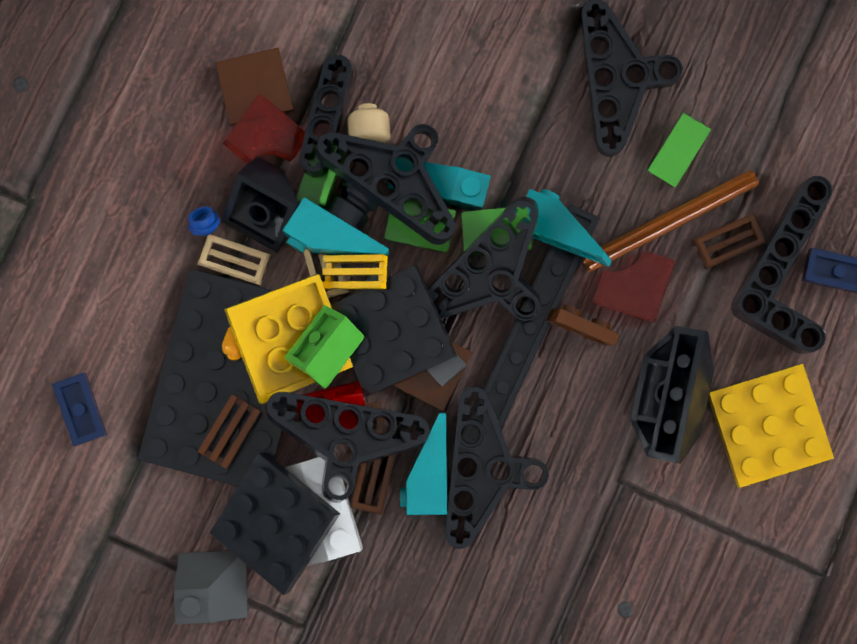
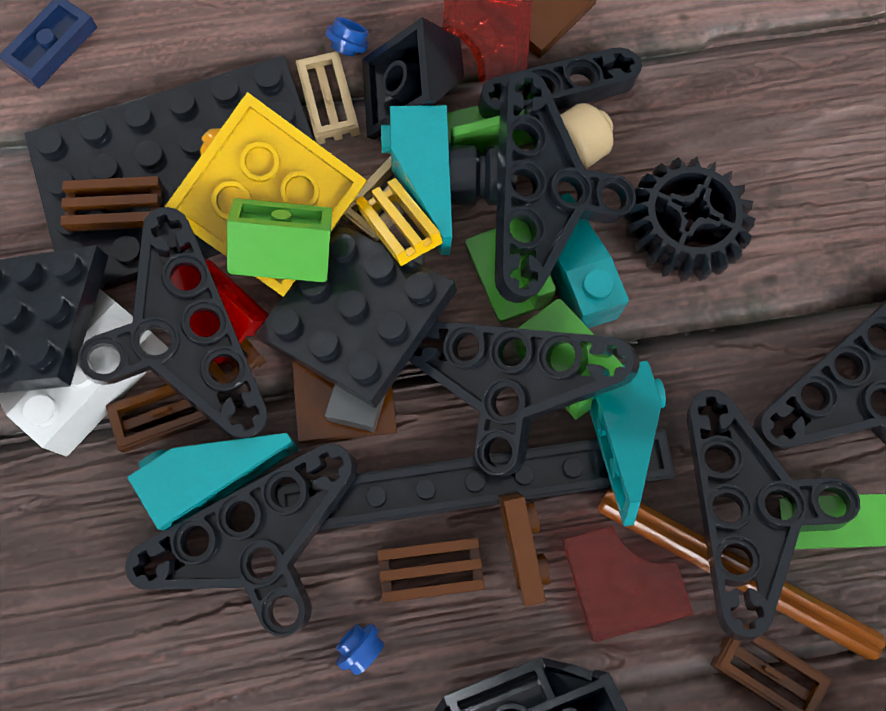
camera: 55 degrees right, 10 degrees down
(472, 93) = (717, 218): none -> black gear
(573, 358) = (388, 575): none -> reddish brown tile
(577, 447) = (359, 648): none -> blue plate
(629, 182) = (762, 537): none -> black beam

